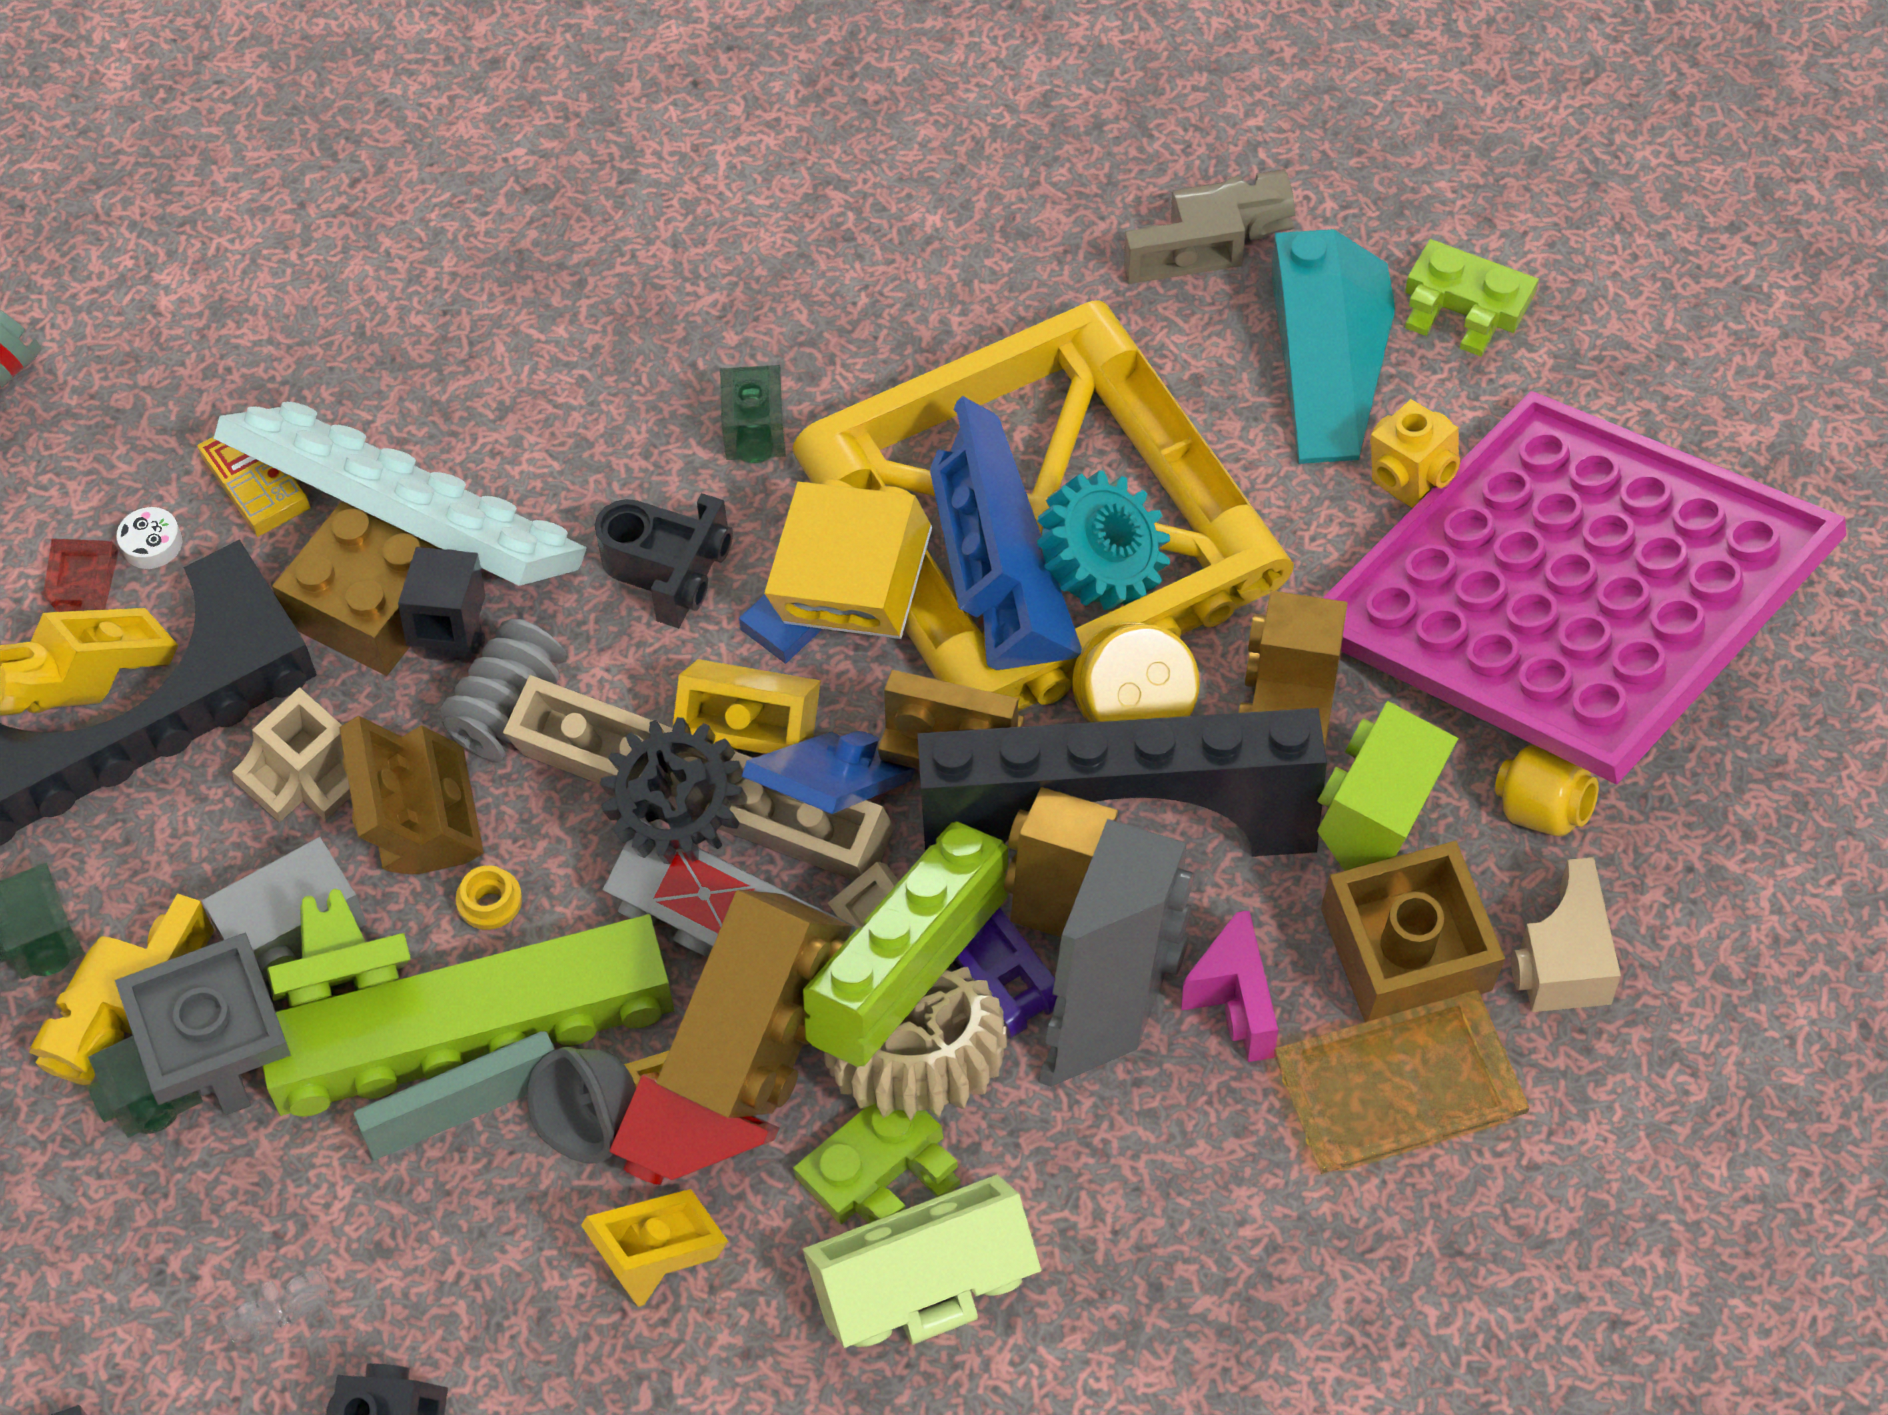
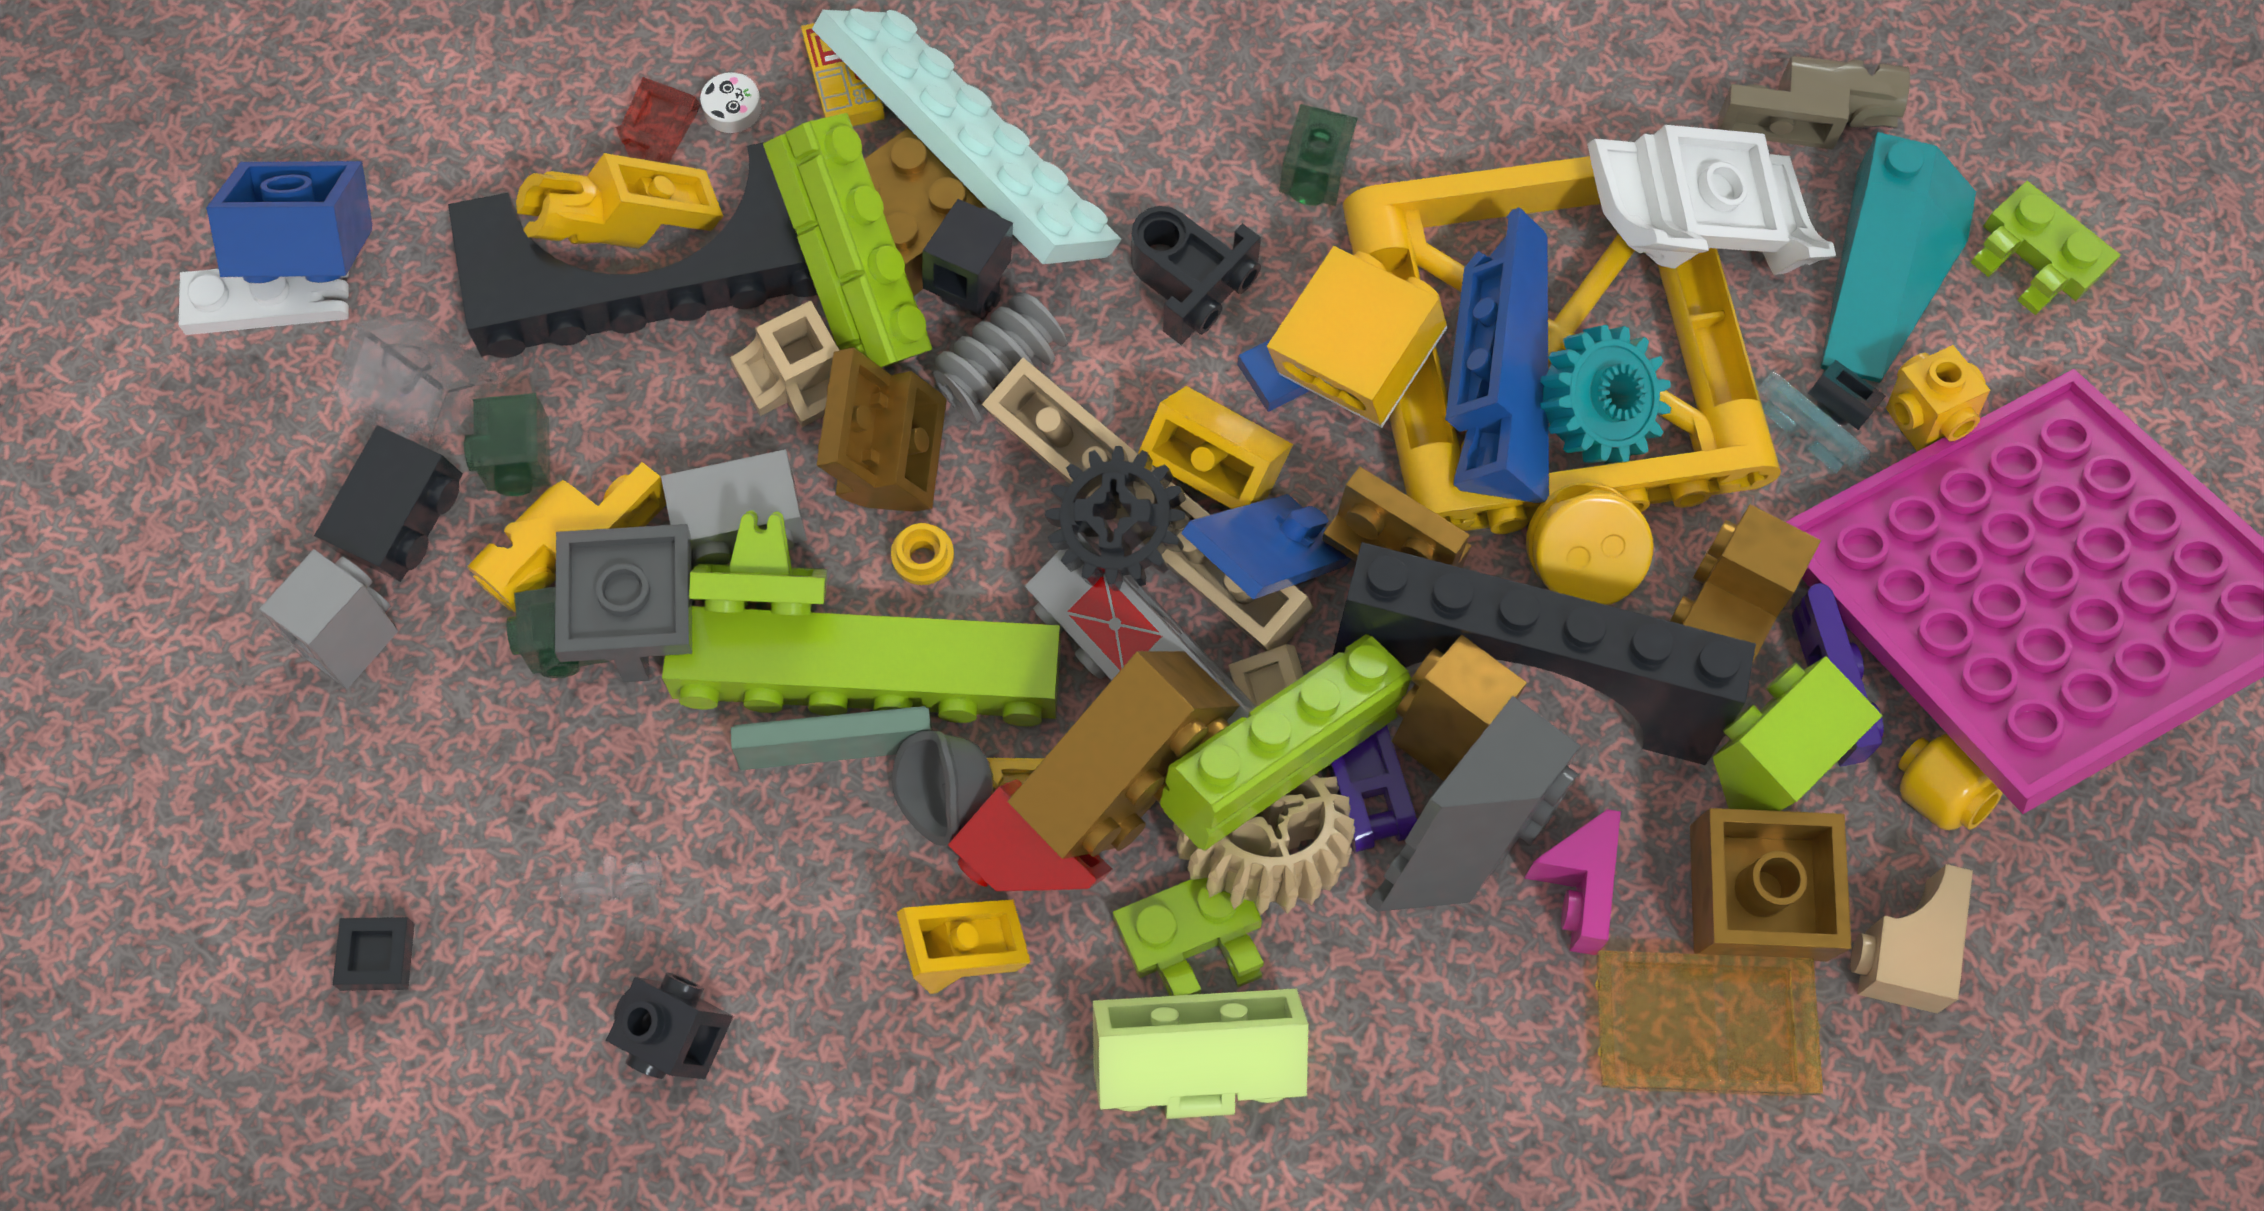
camera: 15 degrees right, 10 degrees up
(317, 619) = (847, 240): none -> lime brick
(1133, 331) = (1705, 191): none -> white piece
(1329, 479) = (1845, 396): none -> black plate
(1332, 523) = (1832, 442): none -> clear light blue plate
(1376, 684) = (1824, 634): none -> dark purple hinge

